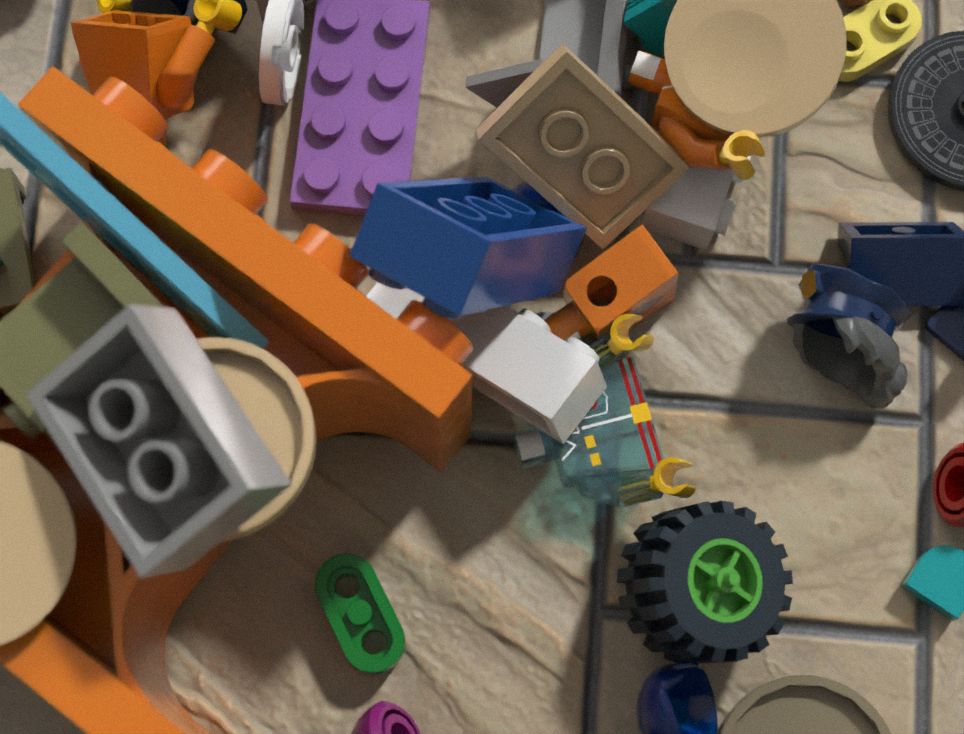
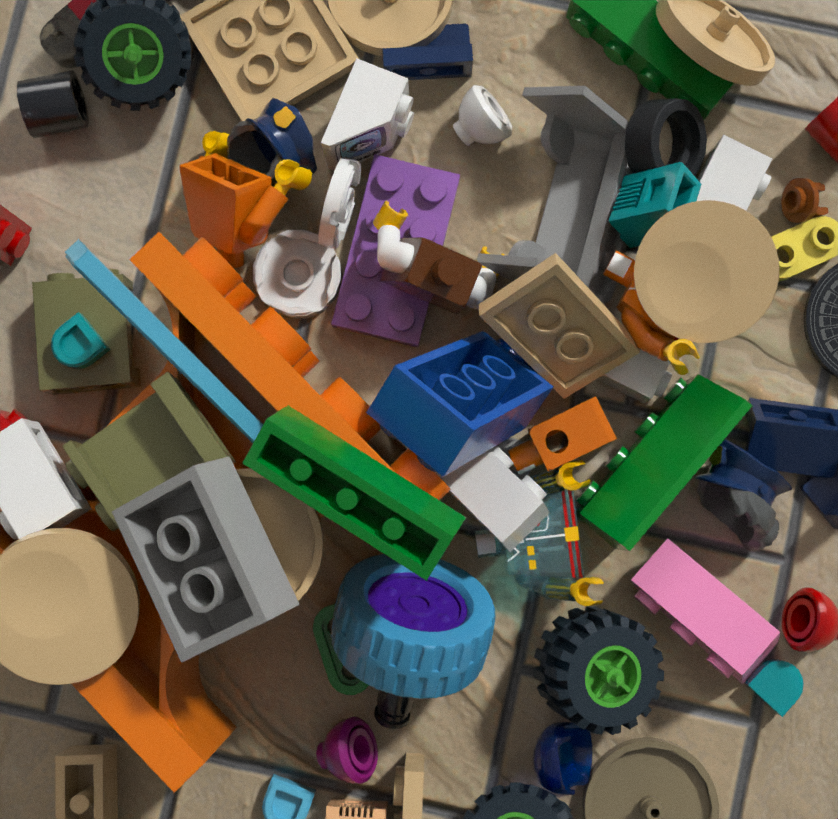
camera: 15 degrees right, 10 degrees up
(245, 132) = (297, 274): none -> white tile
(345, 335) = (354, 490): none -> green brick
(407, 105) = (429, 268): none -> reddish brown torso
(449, 561) = (411, 632): none -> dark azure wheel
(737, 308) = (660, 460): none -> green slope
(835, 492) = (705, 612): none -> bright pink wedge

